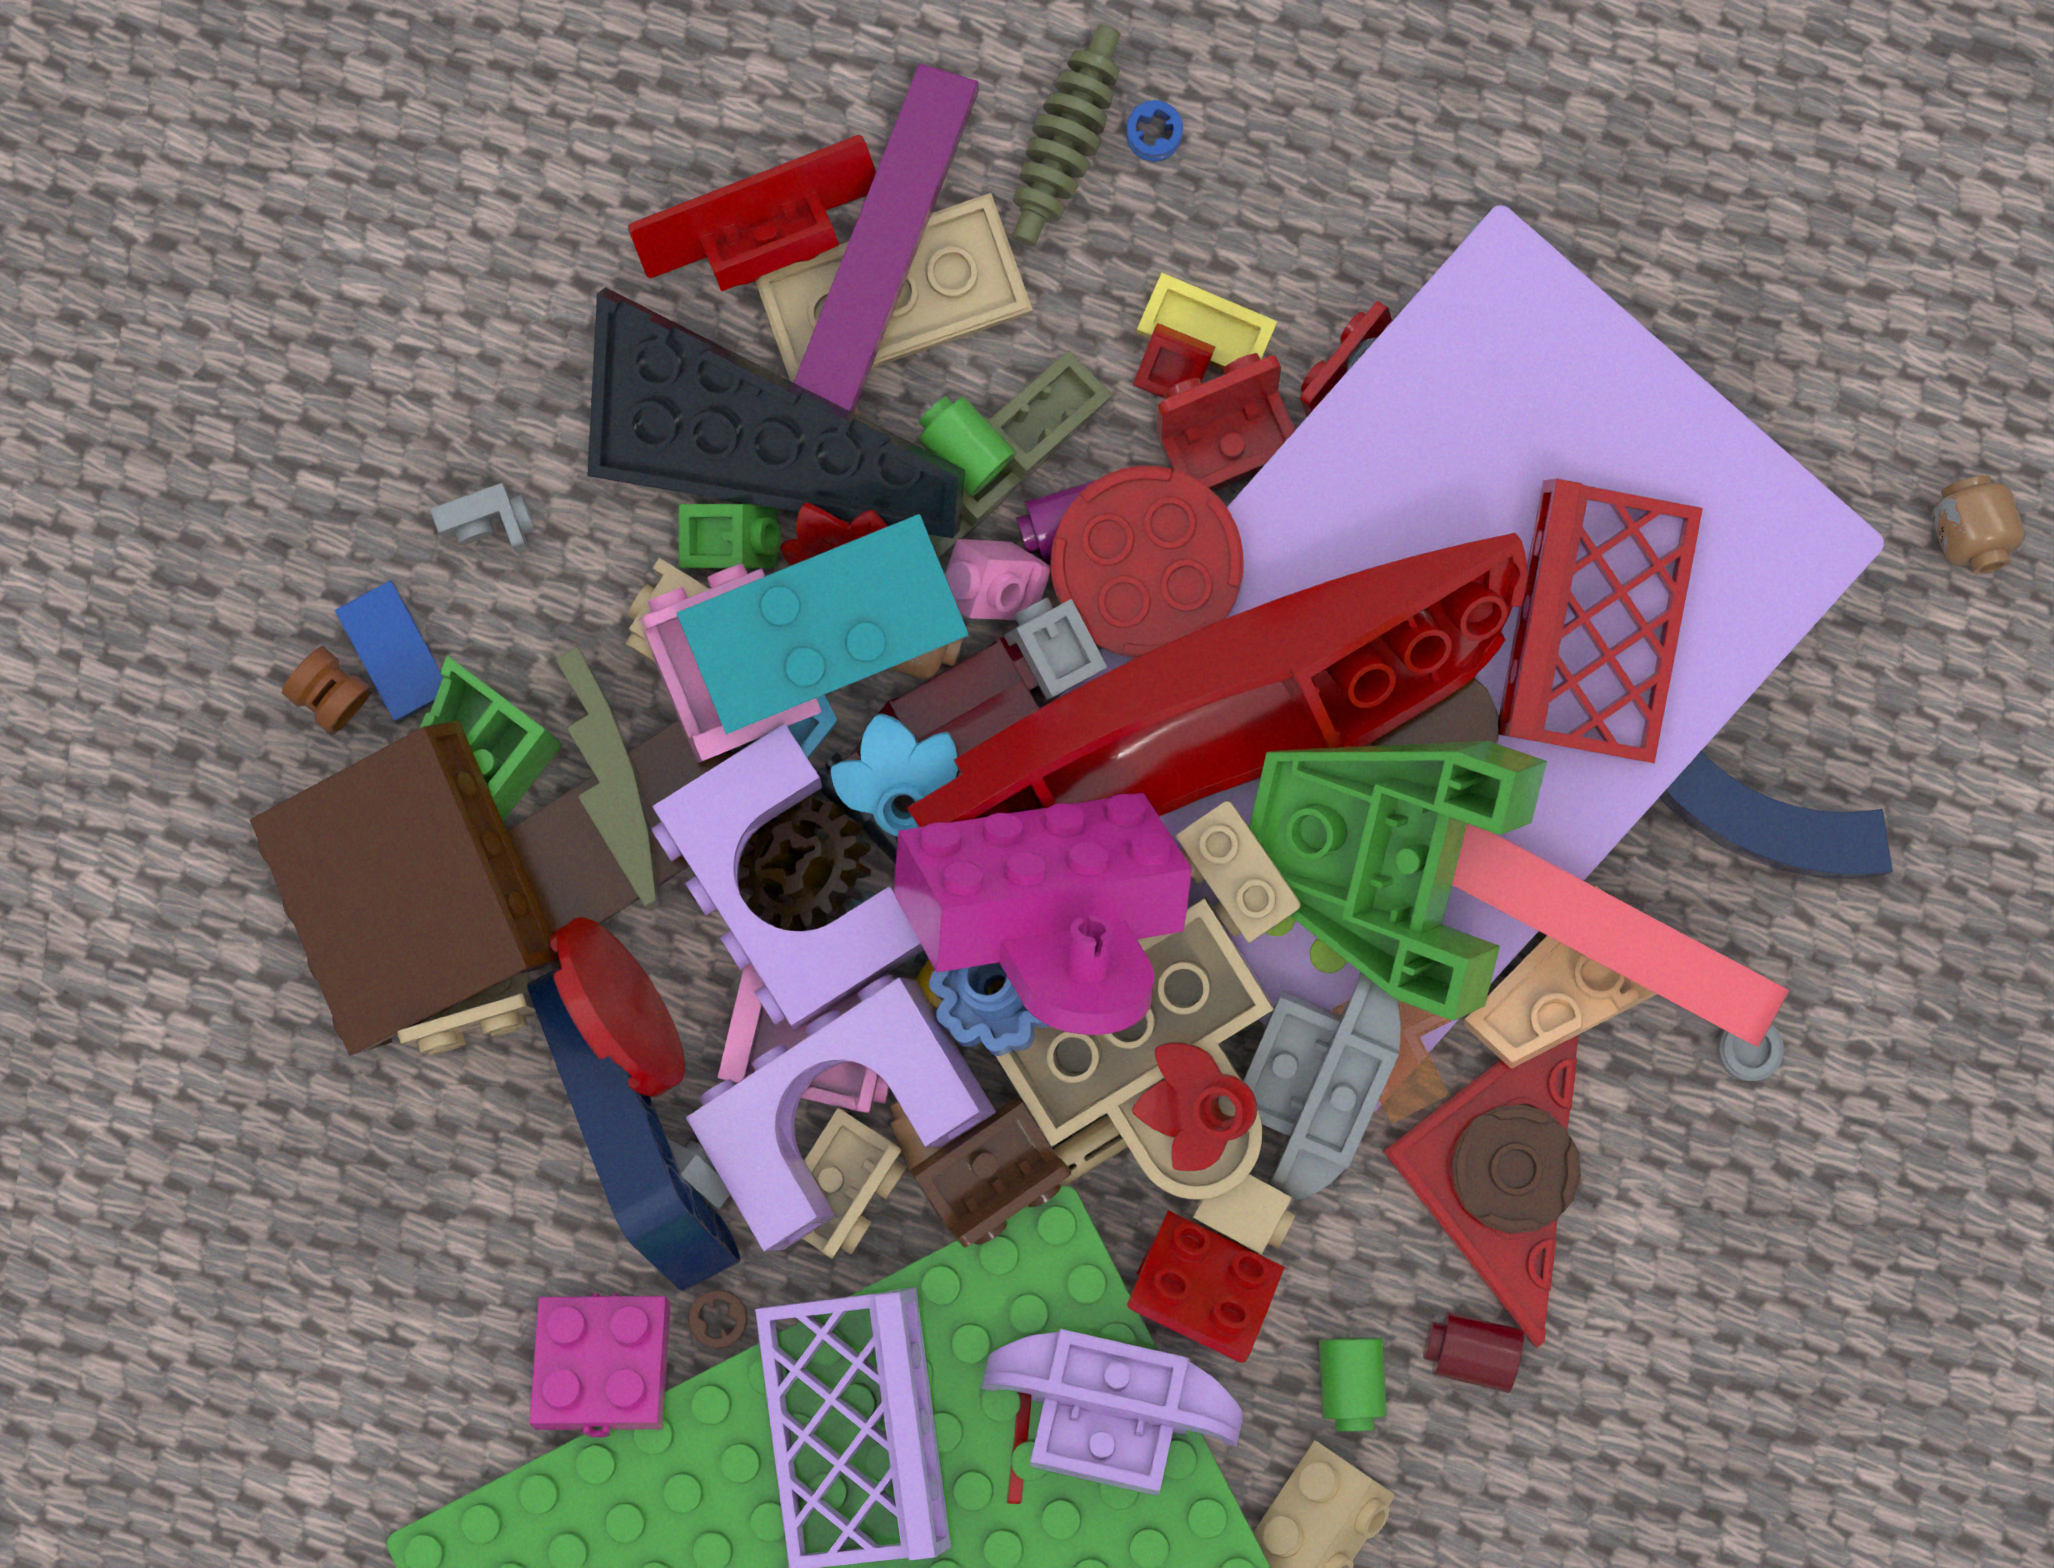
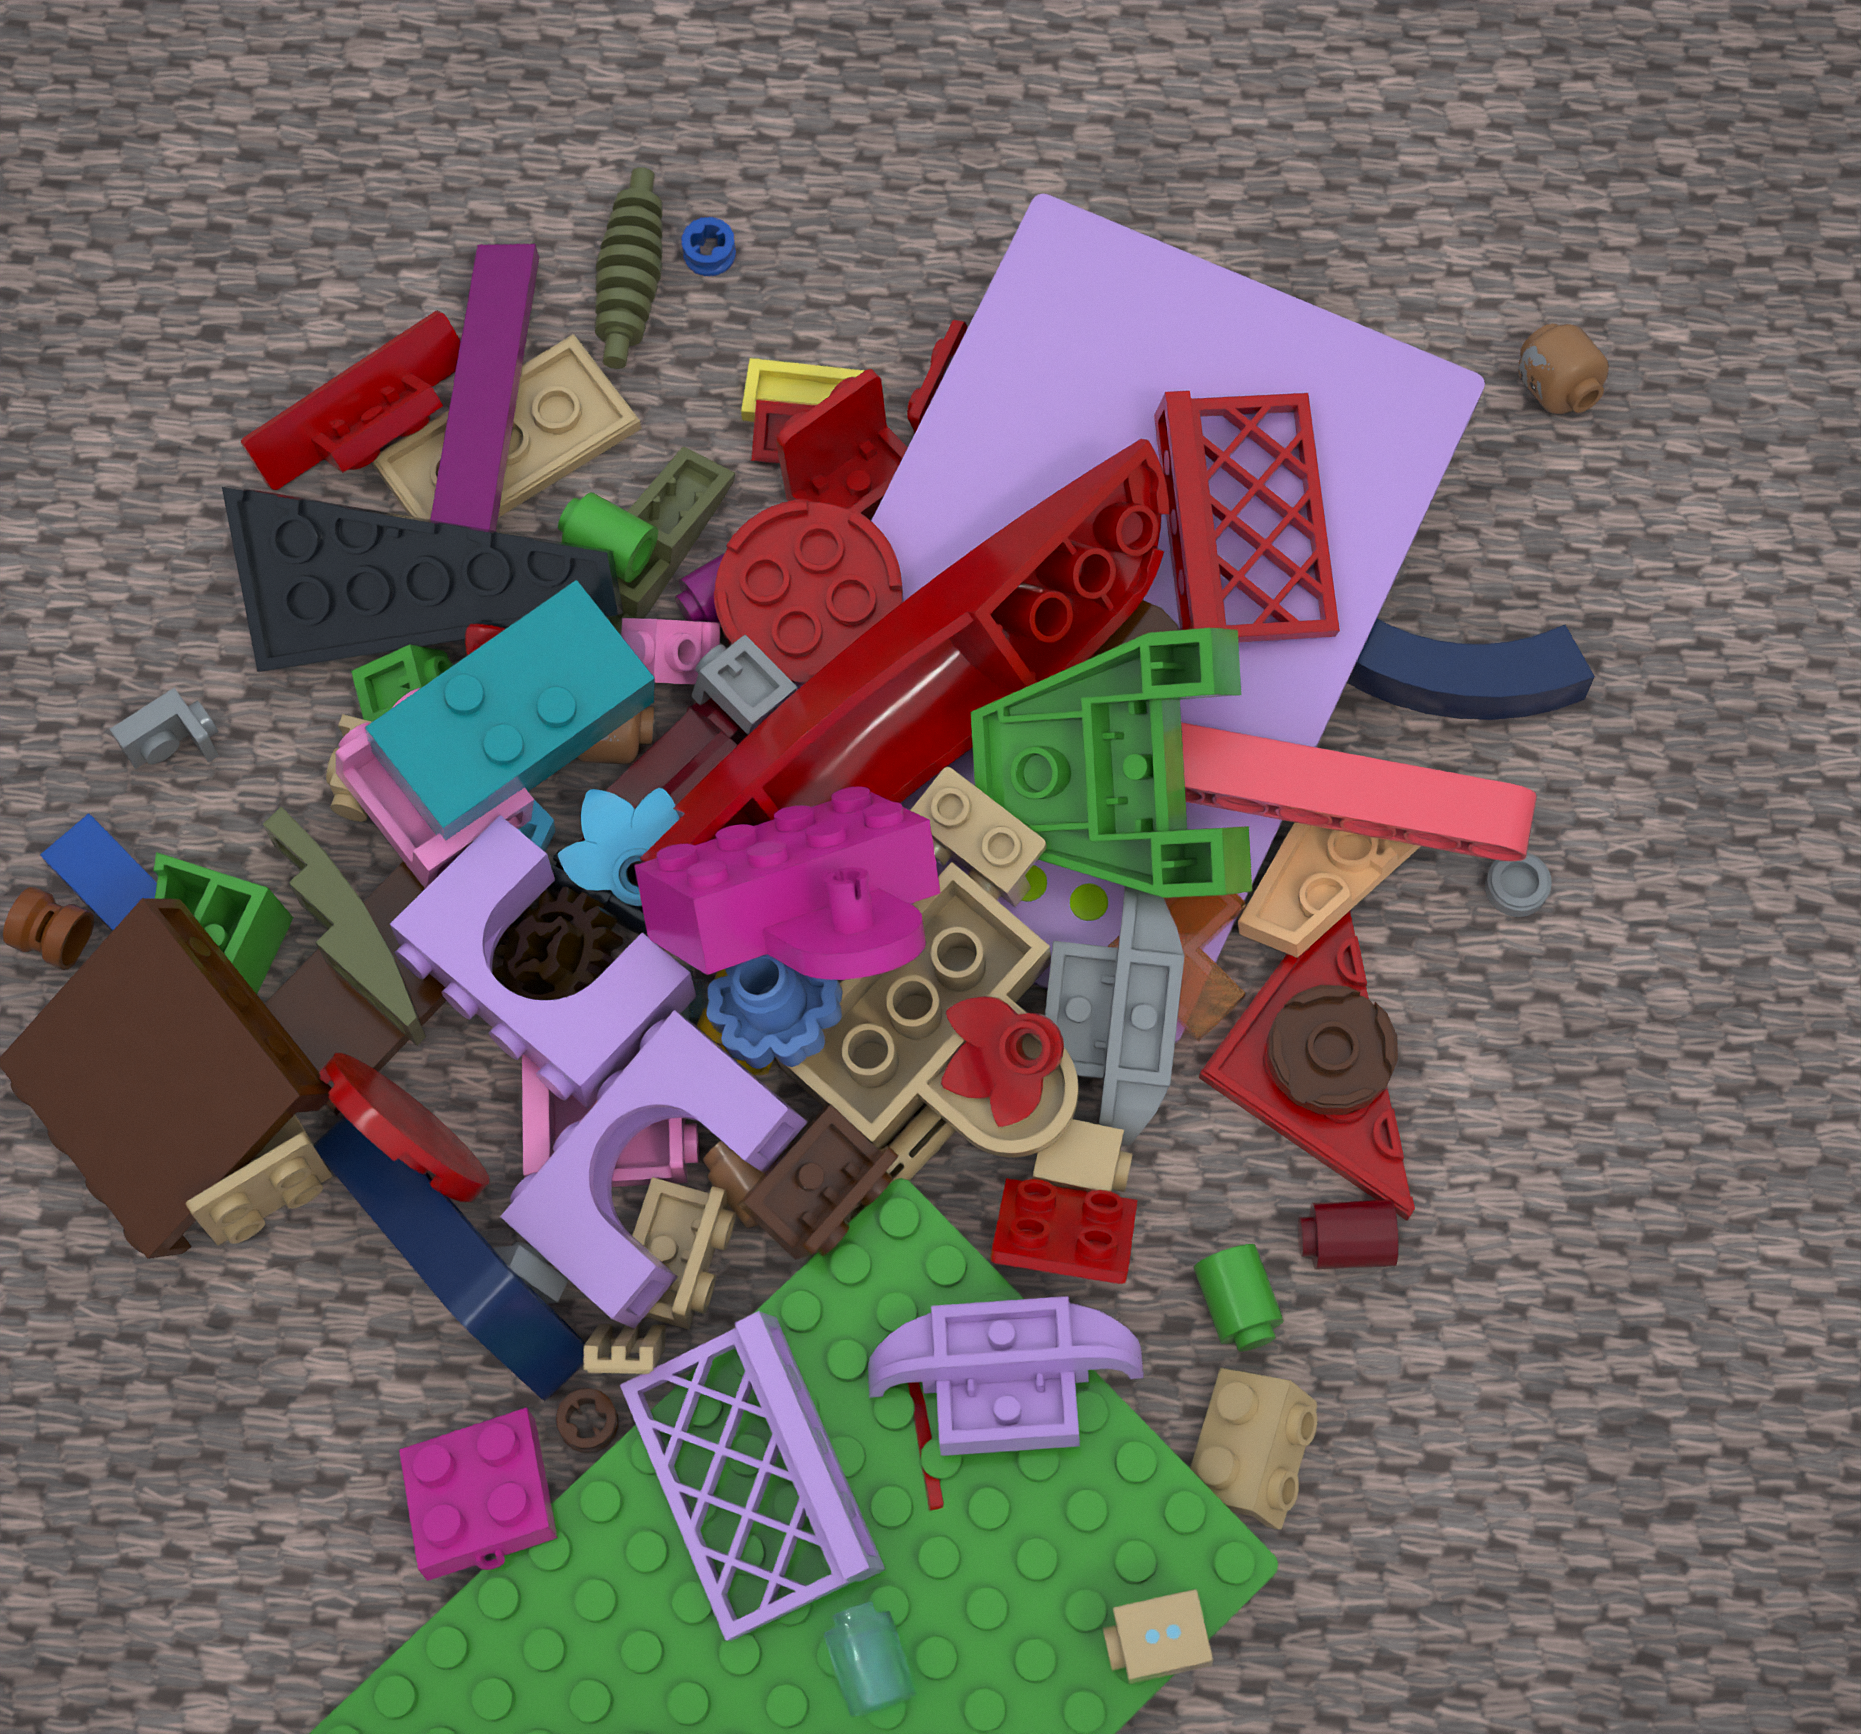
camera: 10 degrees left, 15 degrees down
(773, 1259) = (602, 1344): none -> tan tile

